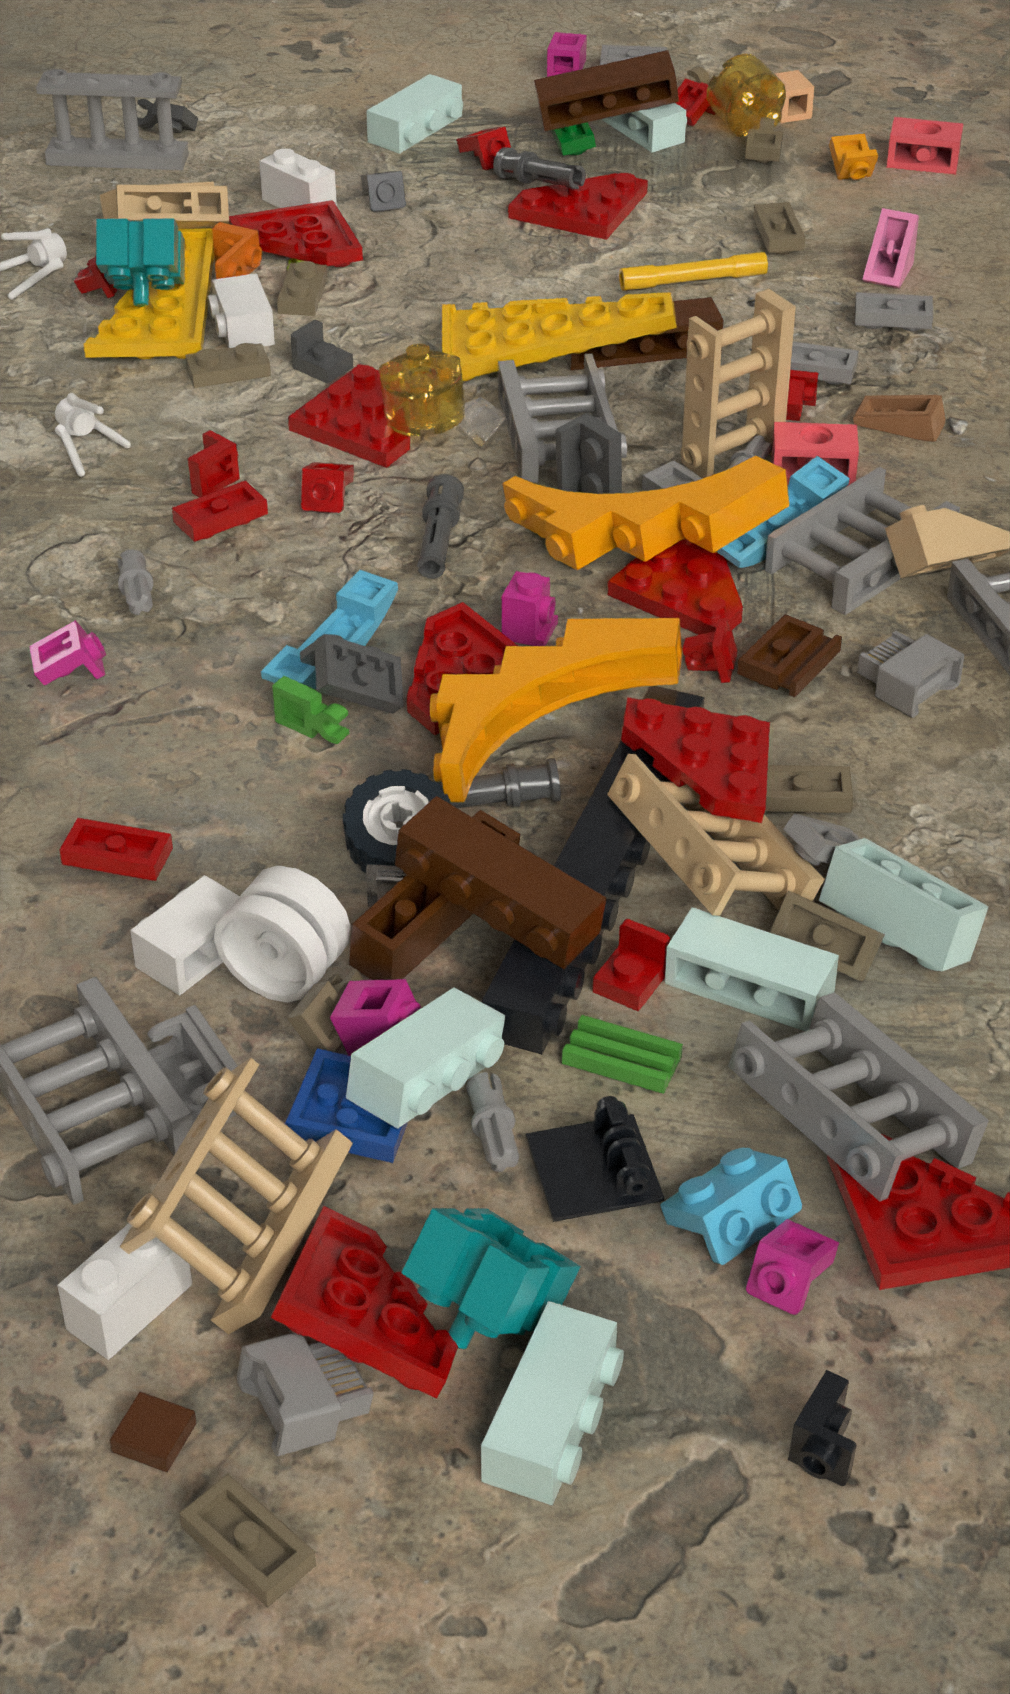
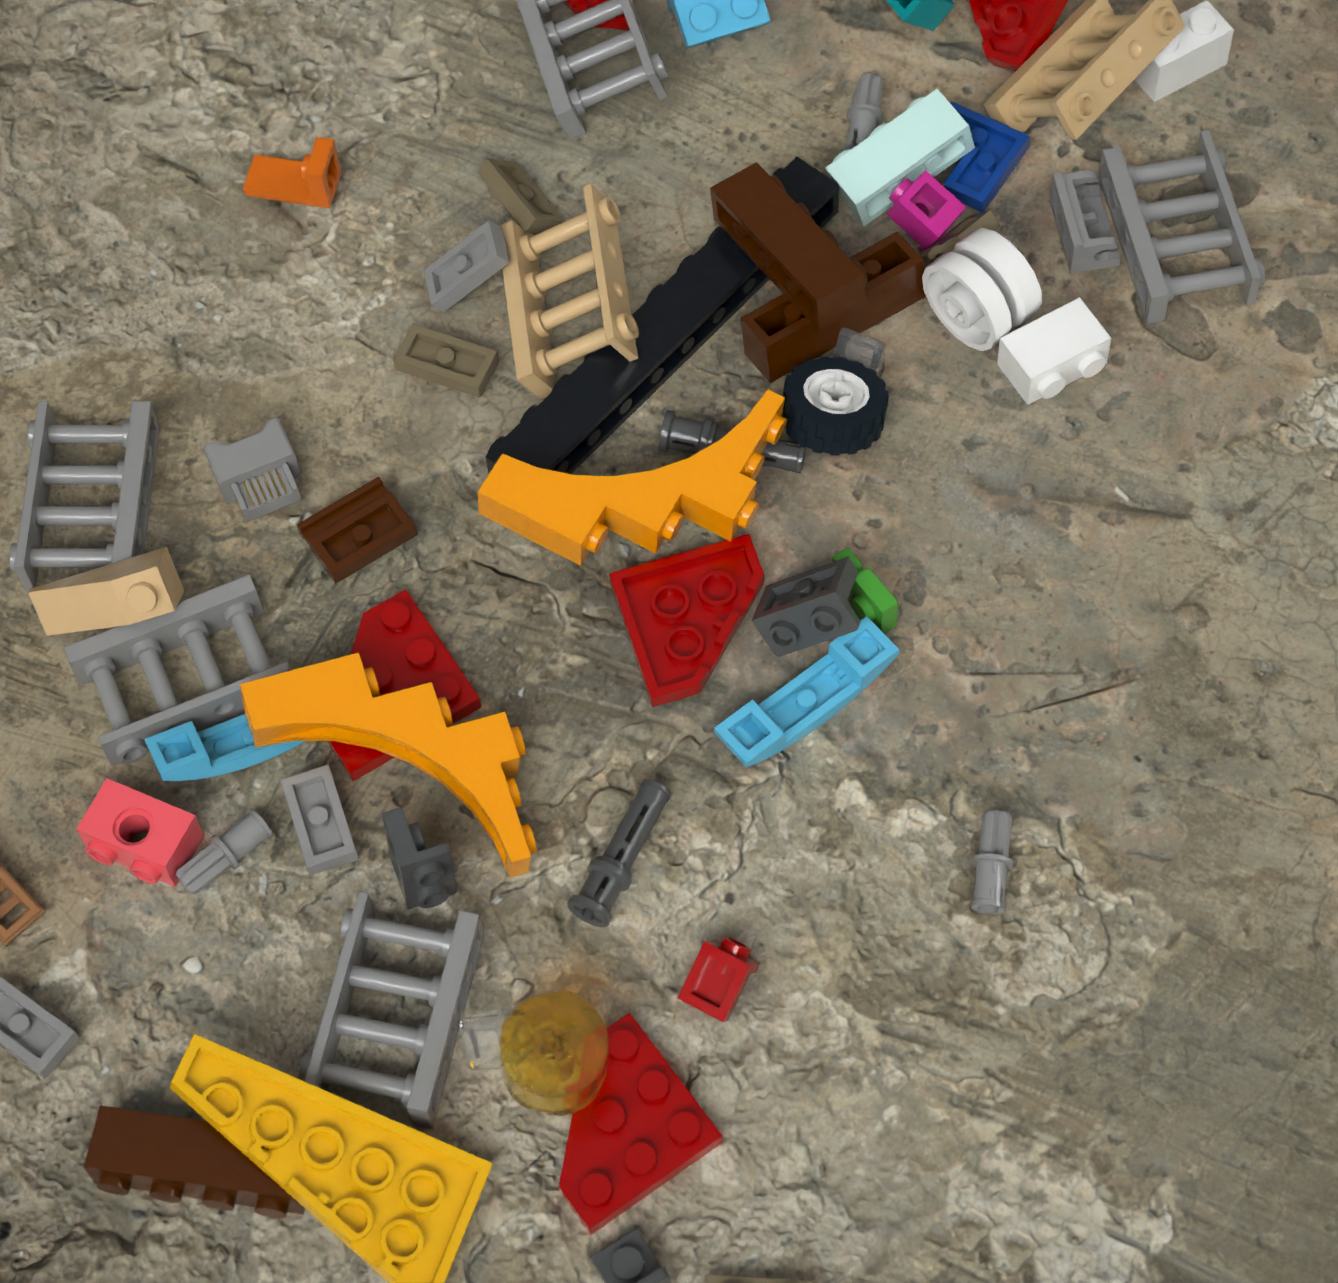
camera: 155 degrees left, 20 degrees up
(66, 650) = (1093, 758): dark pink bracket -> none
(78, 419) = (993, 1225): white plant -> none
(116, 849) = (1098, 476): red plate -> none
(214, 465) = (848, 1045): red bracket -> none
(220, 511) = (862, 964): red plate -> none
(528, 609) = (583, 659): dark pink brick -> none
(595, 1164) = (802, 64): black hinge -> none
(625, 1047) = (738, 143): bright green tile -> none
(634, 967) = (687, 223): red bracket -> none
(709, 751) = (528, 368): red plate -> none
(712, 651) = (429, 554): red brick -> none
(749, 968) = (577, 156): light aqua brick -> none
(768, 381) = (162, 887): tan fence -> none
(801, 392) = (88, 963): red brick -> none
(904, 904) = (441, 181): light aqua brick -> none

